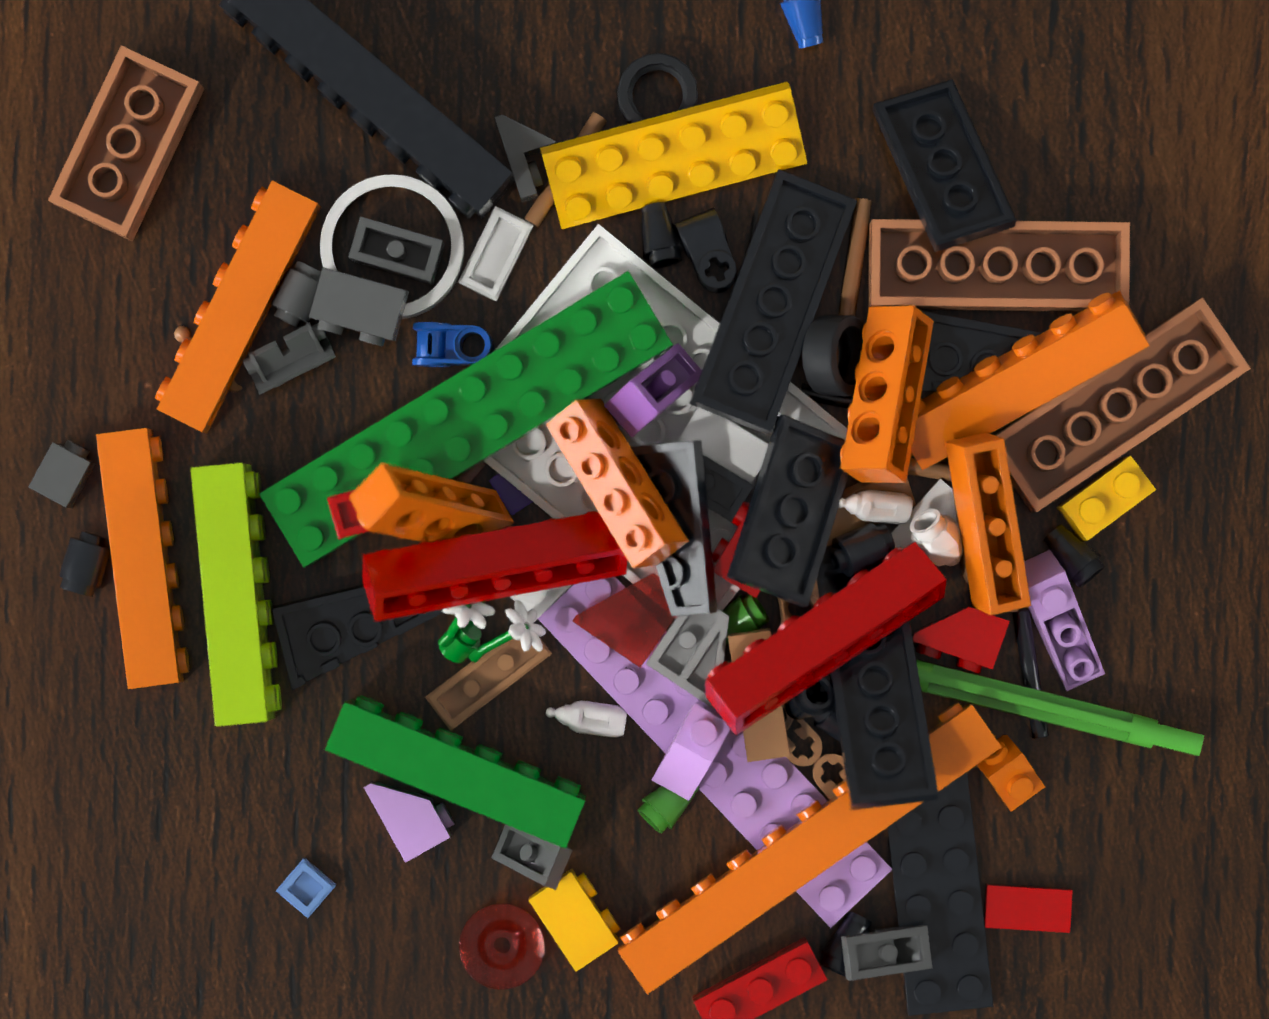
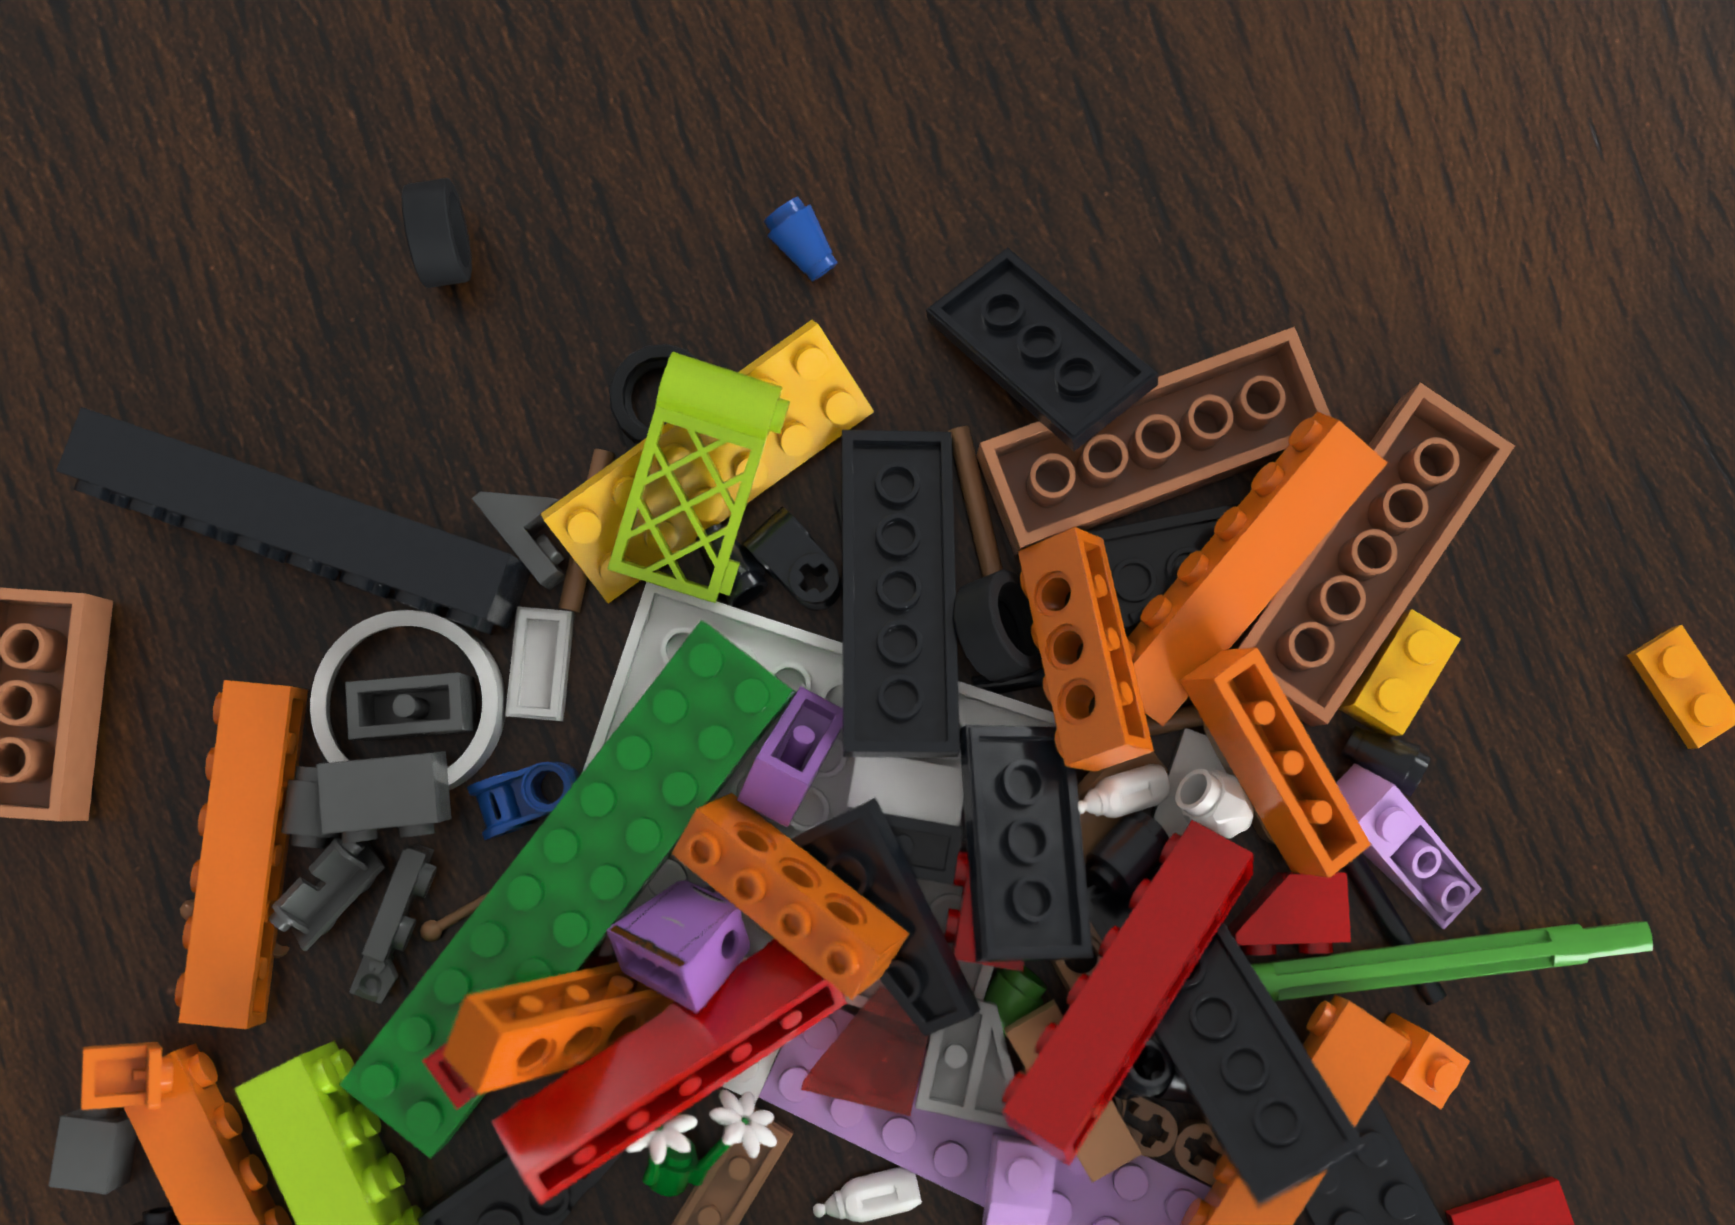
camera: 20 degrees left, 5 degrees down
(114, 431) = (125, 1075): none -> orange bracket
(325, 401) = (392, 925): none -> dark grey hinge
(349, 414) = (432, 930): none -> medium nougat hinge
(529, 487) = (681, 943): none -> medium lavender torso
(699, 125) = (720, 406): none -> lime piece

